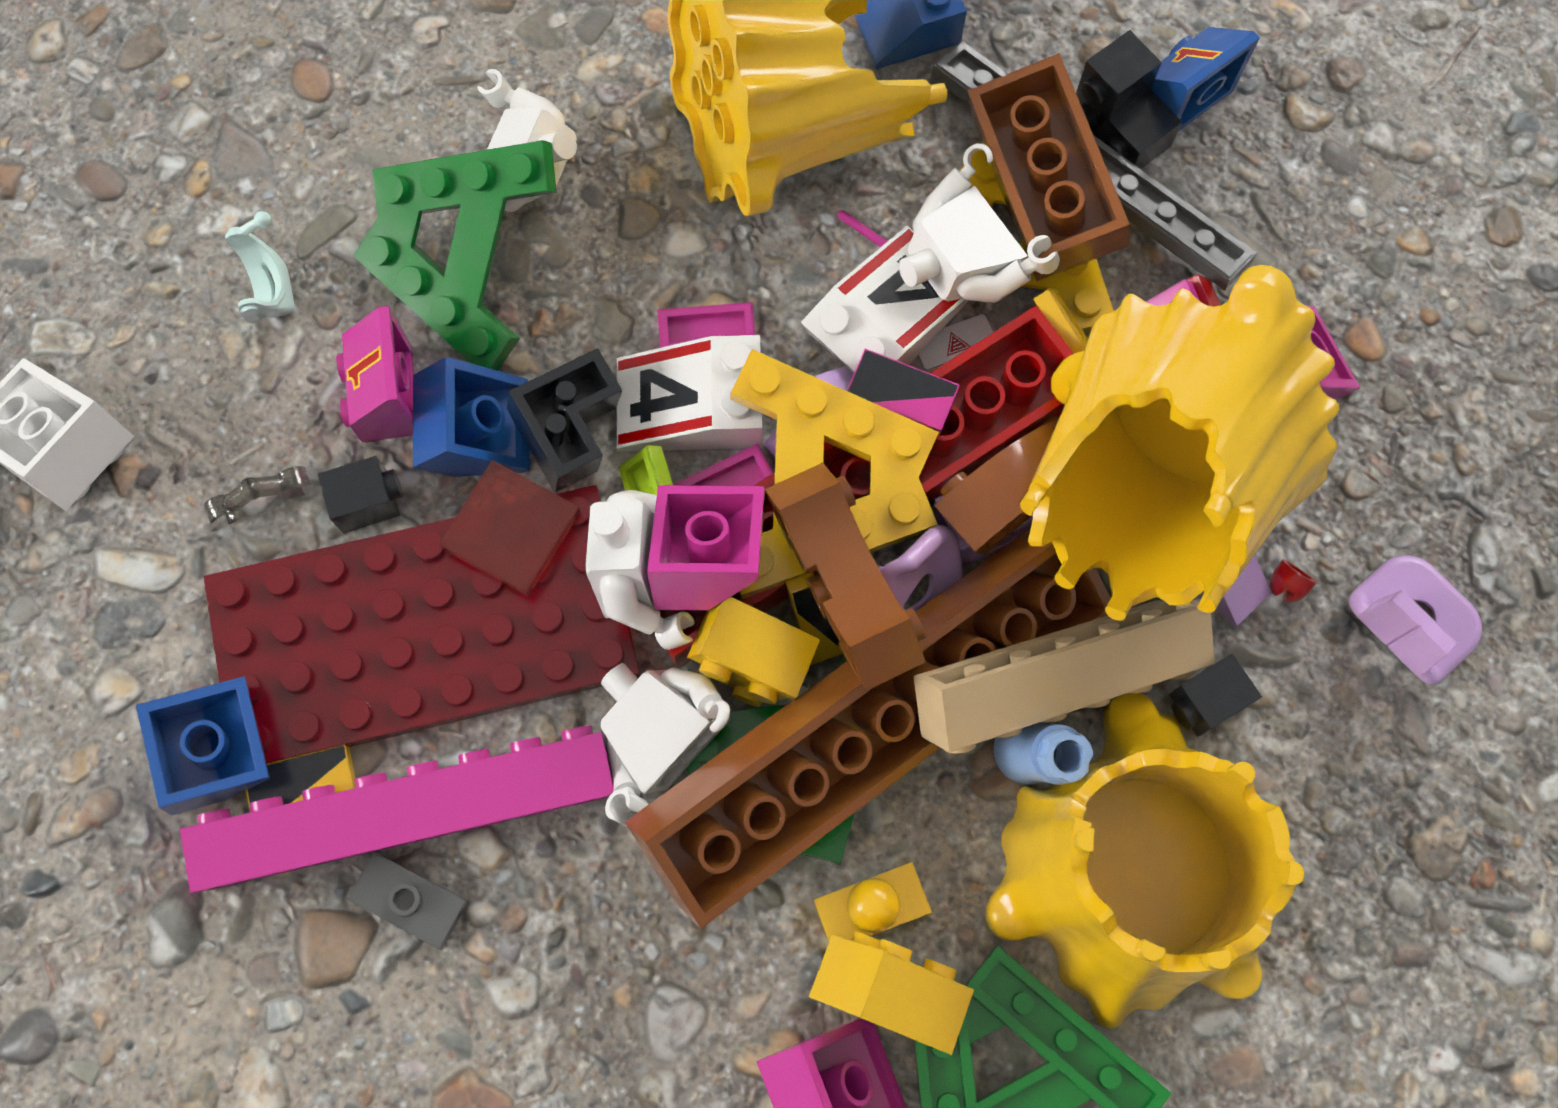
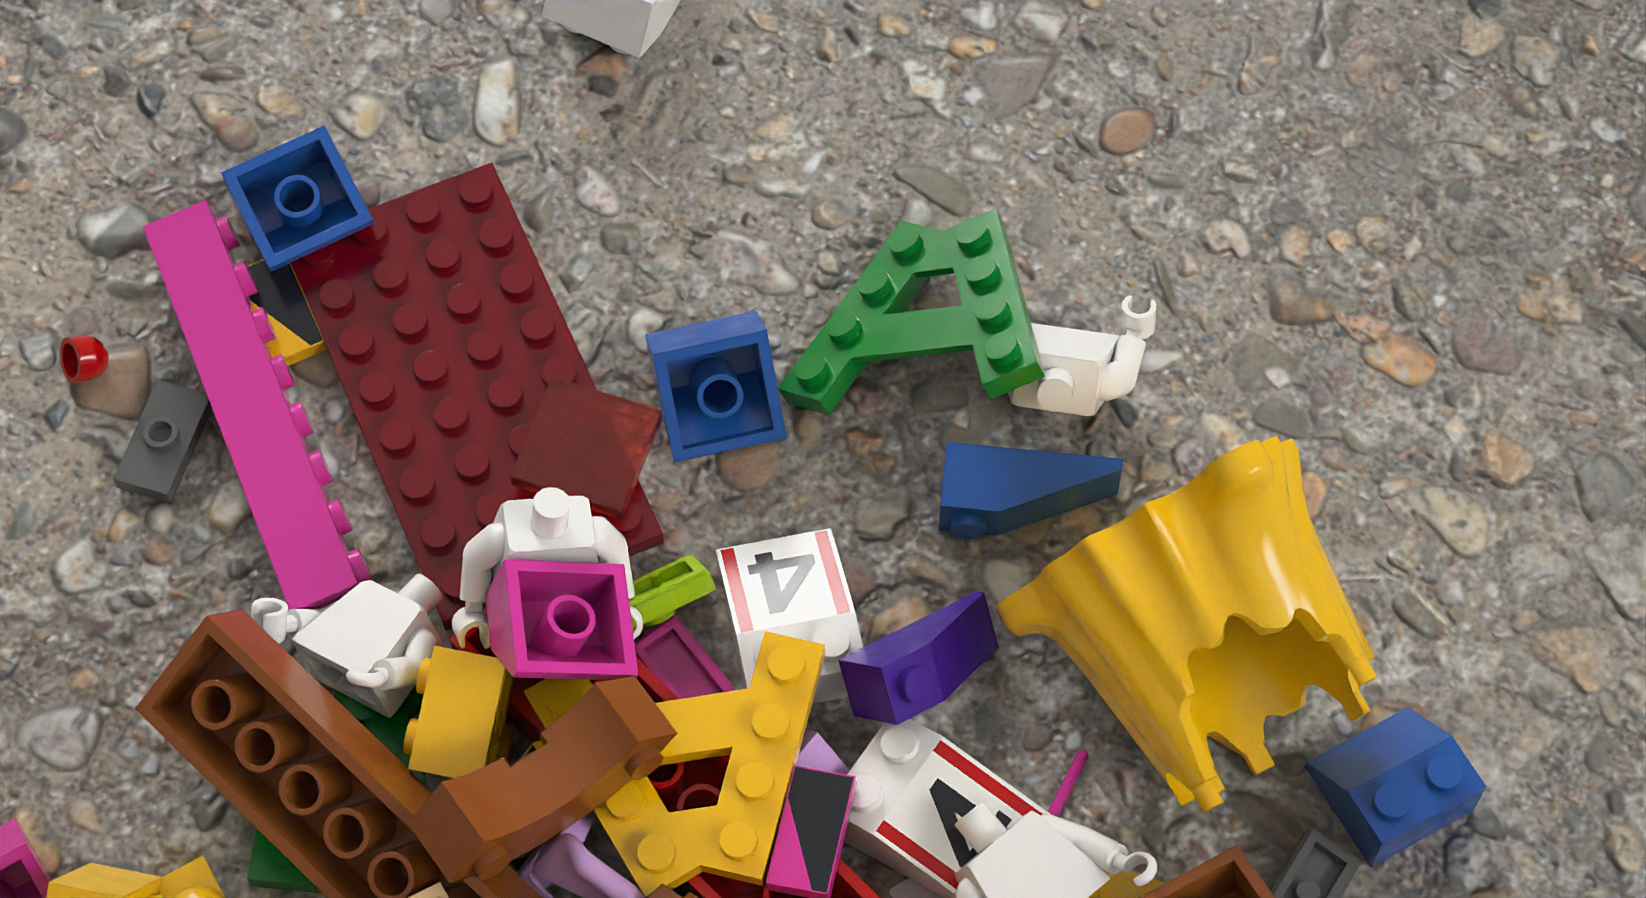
camera: 80 degrees right, 10 degrees down
(258, 260) = (857, 145): light aqua helmet -> none
(286, 483) = (609, 215): clear smoke arm -> none
(306, 969) = (83, 358): none -> red hinge
(360, 494) = (608, 291): black brick -> none
(377, 378) = (755, 273): dark pink slope -> none
(554, 416) = (724, 463): black brick -> none
(613, 226) = (1009, 488): none -> blue slope
(698, 322) = (880, 600): dark pink tile -> none
(771, 303) = (919, 662): none -> dark purple slope

